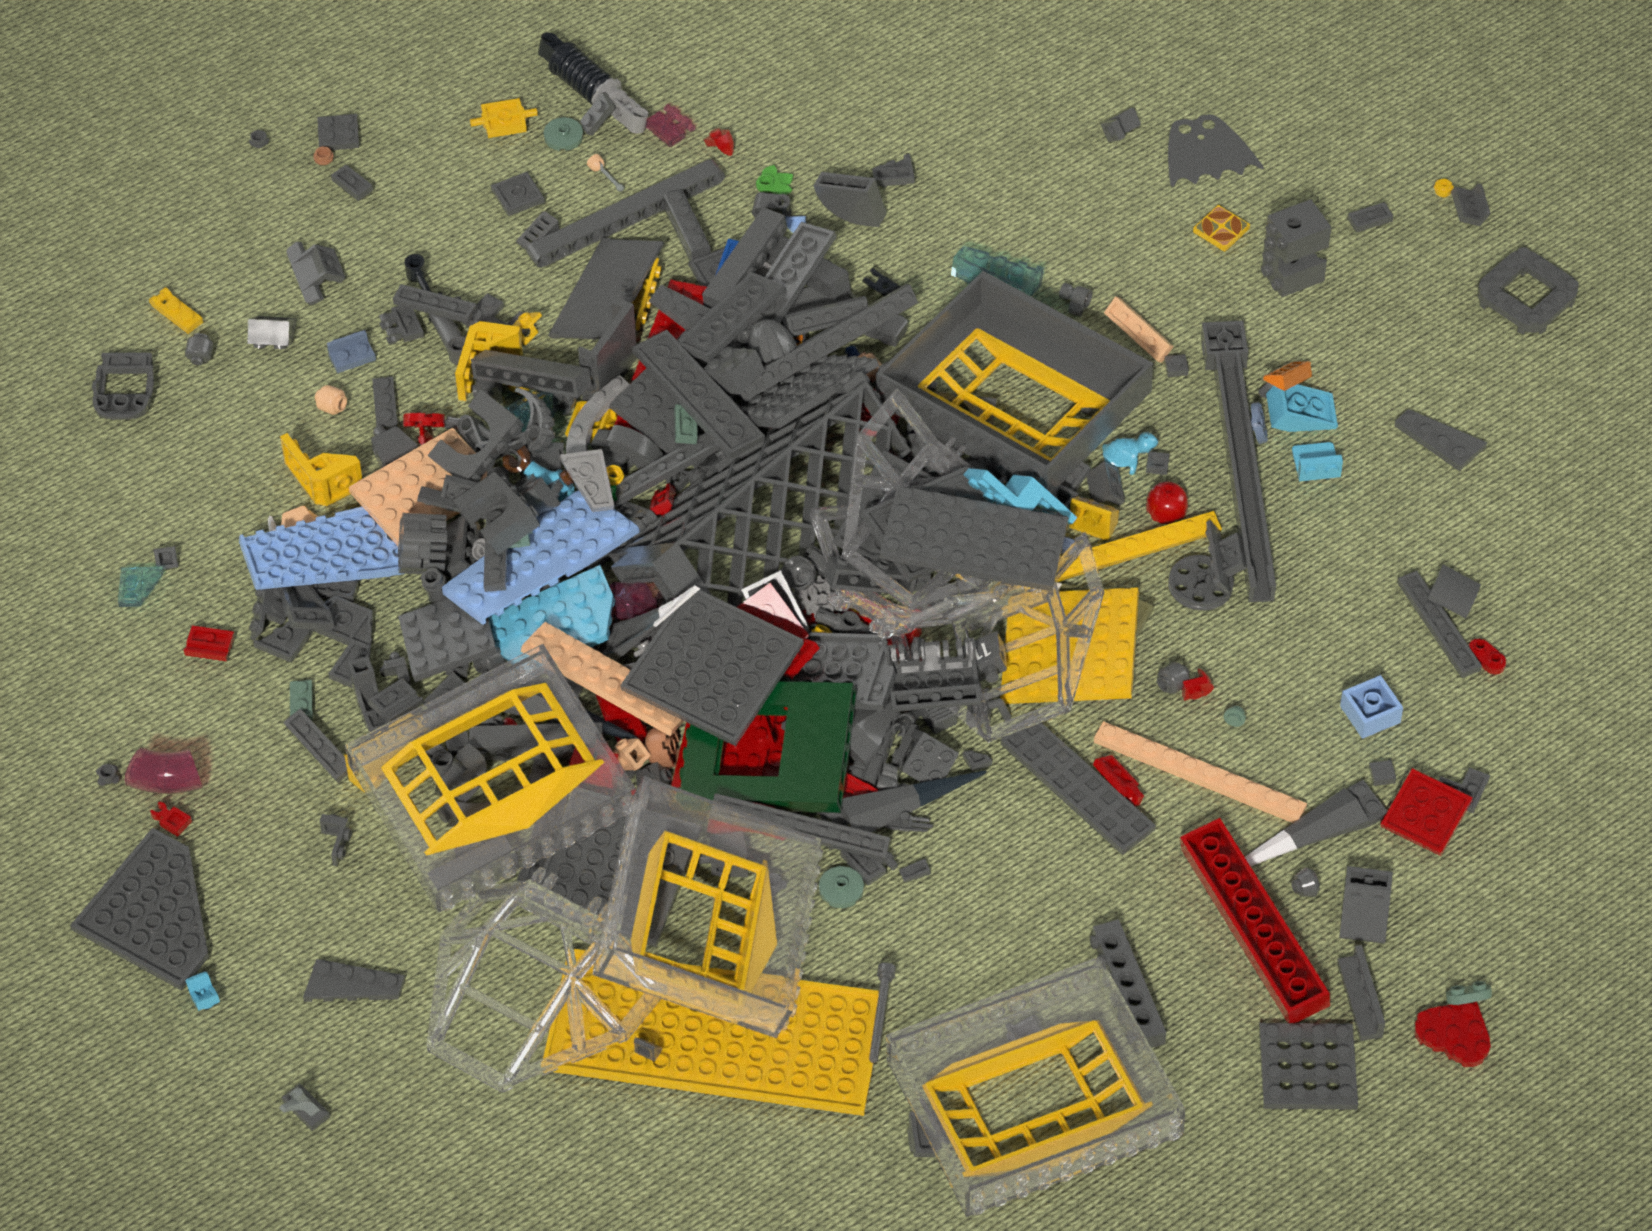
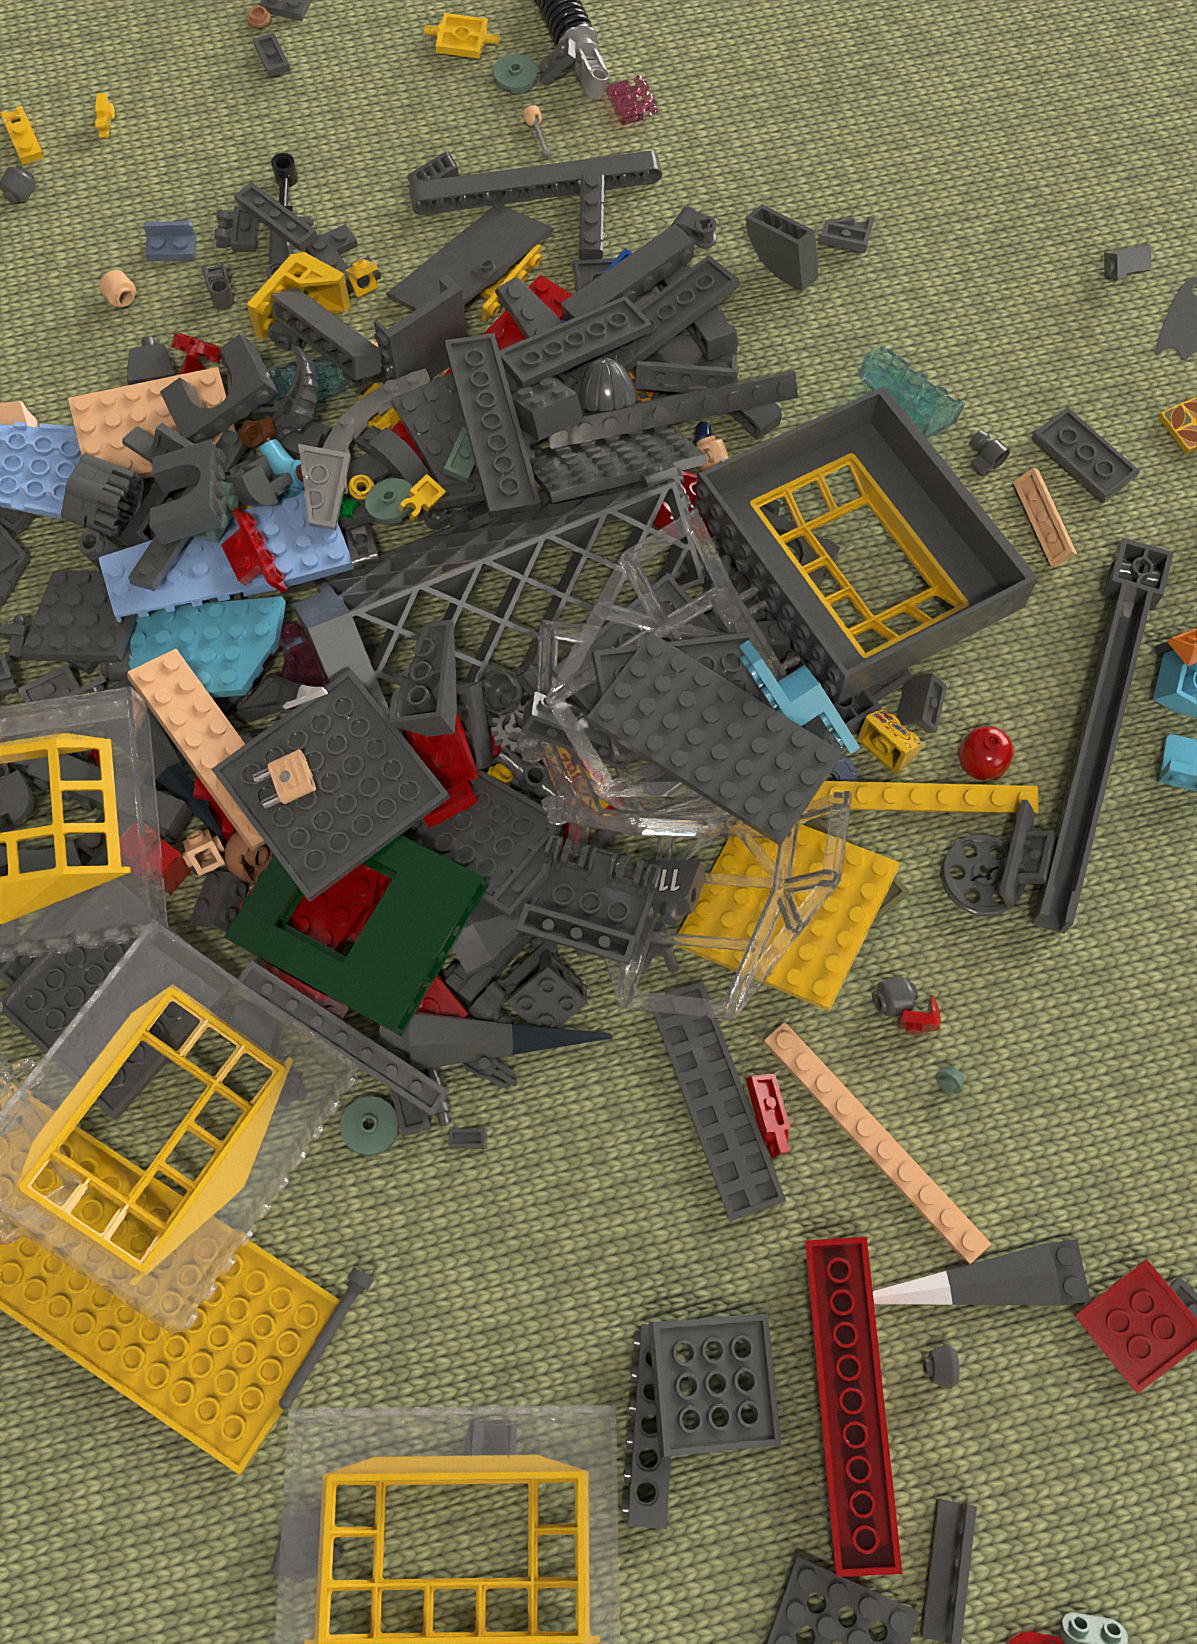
camera: 20 degrees right, 15 degrees up
(238, 270) = (104, 112): none -> yellow plate
(271, 331) = (100, 189): slope -> none
(313, 267) = (183, 132): dark grey plate -> none
(326, 484) = (54, 370): yellow bracket -> none
(385, 402) = (175, 311): dark grey plate -> none
(410, 371) = (219, 286): none -> dark grey piece
(517, 193) = (433, 123): dark grey plate -> none
(560, 545) = (249, 554): none -> red bracket
(643, 476) = (384, 501): none -> sand green plate
(647, 1049) = (23, 1268): dark grey slope -> none
(663, 500) = (402, 537): red hinge -> none
(669, 463) = (423, 495): none -> yellow plate
(684, 667) = (290, 777): none -> light nougat piece
(721, 139) = (677, 135): red plate -> none
(752, 578) = (428, 692): none -> dark grey wedge
(774, 182) = (712, 200): bright green plate -> none
(793, 222) = (716, 253): light blue tile -> none
(883, 285) = (776, 360): black hinge -> none
(976, 760) = (610, 1013): dark grey tile -> none
(1125, 451) = (963, 667): medium azure animal -> none
(1149, 275) = (1085, 454): none -> dark grey plate
(1154, 953) = (672, 1404): none -> dark grey piece
(1157, 463) = (996, 696): dark grey plate -> none
(1176, 365) = (1070, 577): dark grey plate -> none
(1258, 424) = (1138, 691): sand blue plate -> none
(1365, 904) = (1007, 1436): dark grey slope -> none
(1371, 706) = (1128, 1139): light blue brick -> none
(1382, 773) = (1106, 1235): dark grey tile -> none

